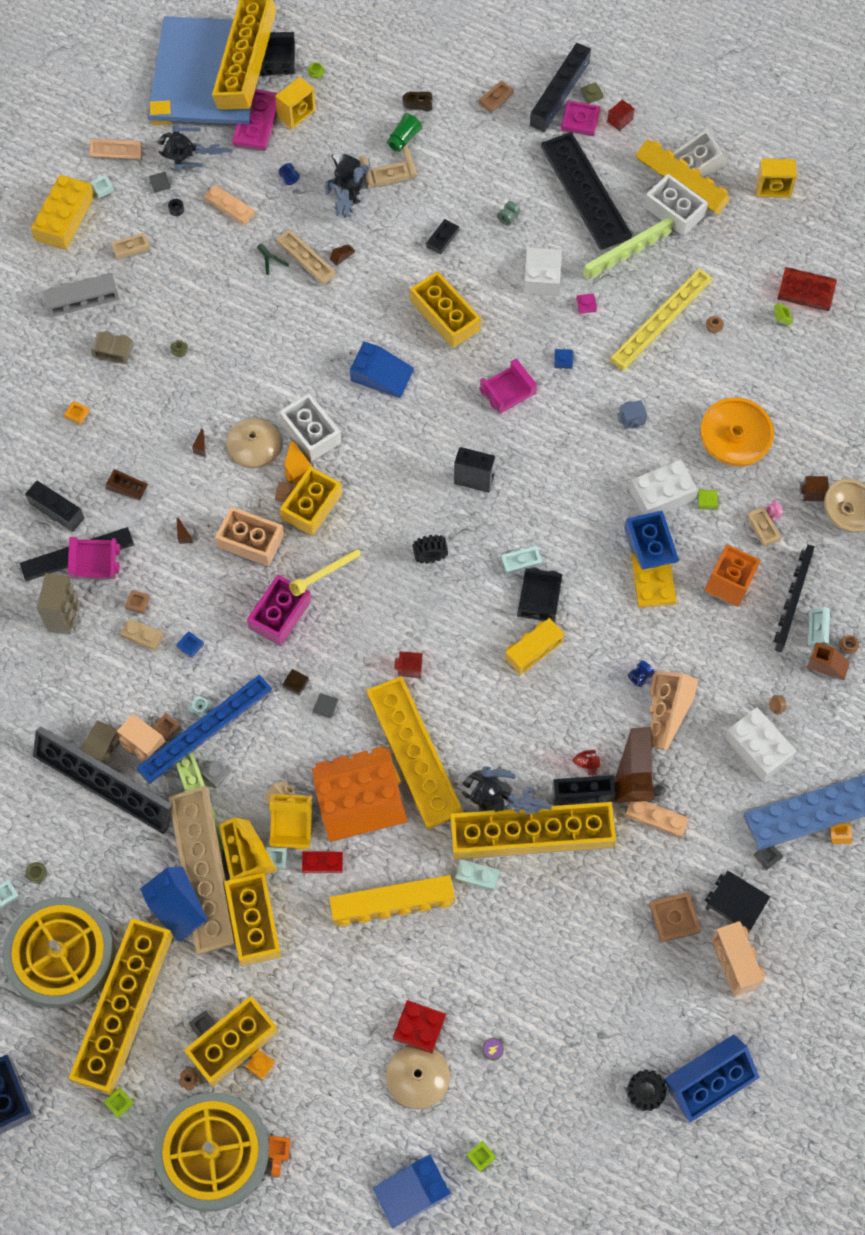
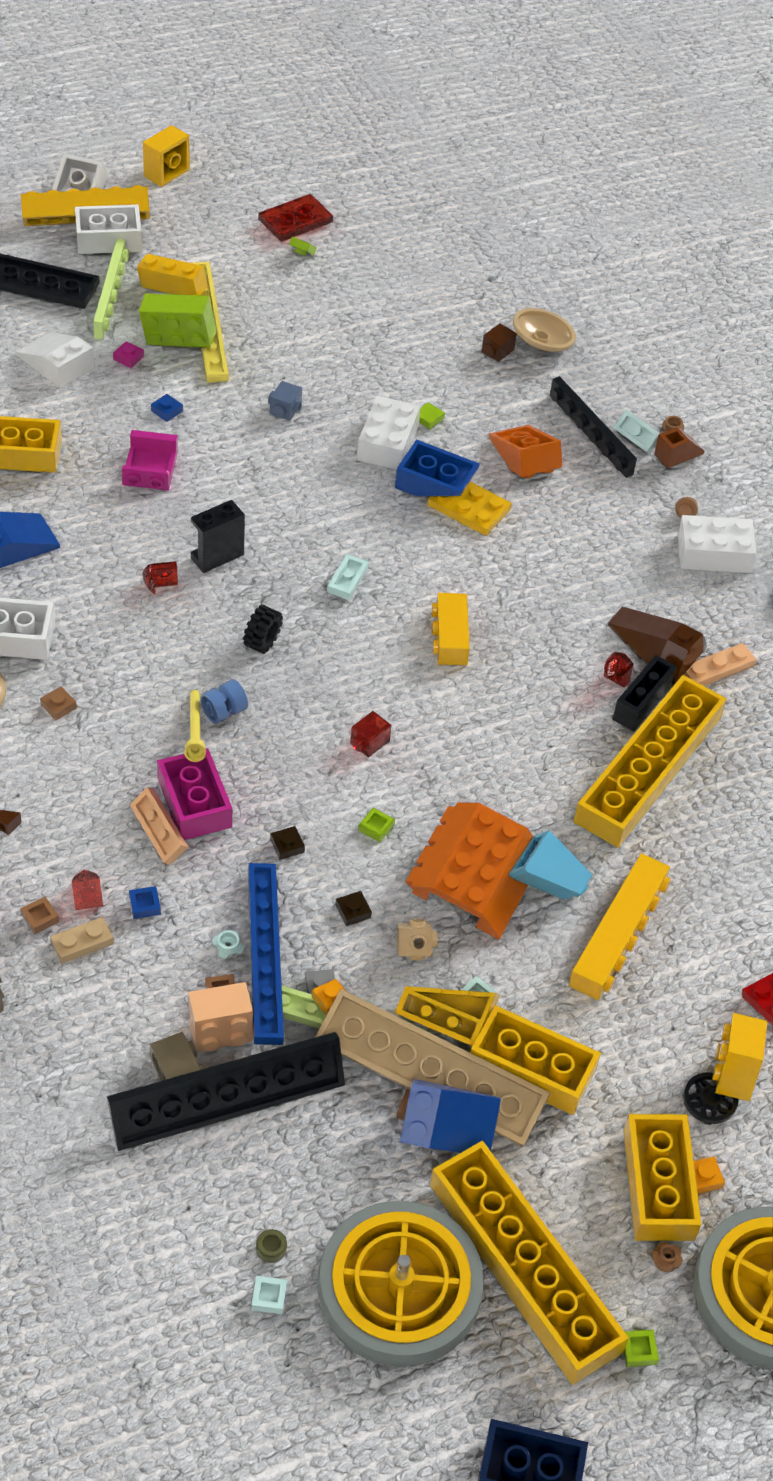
camera: 55 degrees left, 15 degrees down
(171, 610) = (86, 890): none -> clear red plate
(201, 1023) = (612, 1200): dark grey tile -> none
(205, 780) = (326, 994): none -> light orange plate
(249, 536) = (79, 760): light nougat brick -> none
(251, 597) = (159, 826): none -> light nougat plate
(281, 750) = (353, 908): none -> dark brown plate
(290, 821) = (452, 945): yellow panel -> none
(295, 464) = (39, 670): light orange slope -> none
(311, 501) = (99, 684): yellow brick -> none
(315, 1033) = (708, 1100): none -> black wheel
(322, 862) = (518, 959): red plate -> none
(325, 705) = (341, 835): dark grey tile -> none
(345, 1030) = (740, 1056): none -> yellow brick
(351, 717) = (376, 824): none -> lime tile
(360, 572) = (225, 700): none -> medium blue wheel
(390, 833) = (551, 867): none -> medium azure slope
(414, 752) = (439, 786): yellow plate -> none
(423, 463) = (160, 575): none -> clear red plate
(477, 875) = (653, 839): light aqua plate -> none
(491, 792) = (577, 760): helmet -> none
(539, 594) = (399, 589): black panel -> none
(630, 306) = (177, 320): none -> lime brick
(641, 673) = (561, 574): clear blue wheel -> none
(670, 271) = (171, 275): none -> yellow brick
(671, 700) = (612, 576): light nougat wedge -> none
(714, 328) = (257, 293): medium nougat plate -> none
(737, 432) = (387, 347): light orange dish -> none
(763, 527) = (499, 398): tan plate -> none
(774, 510) = (496, 380): bright pink plate -> none

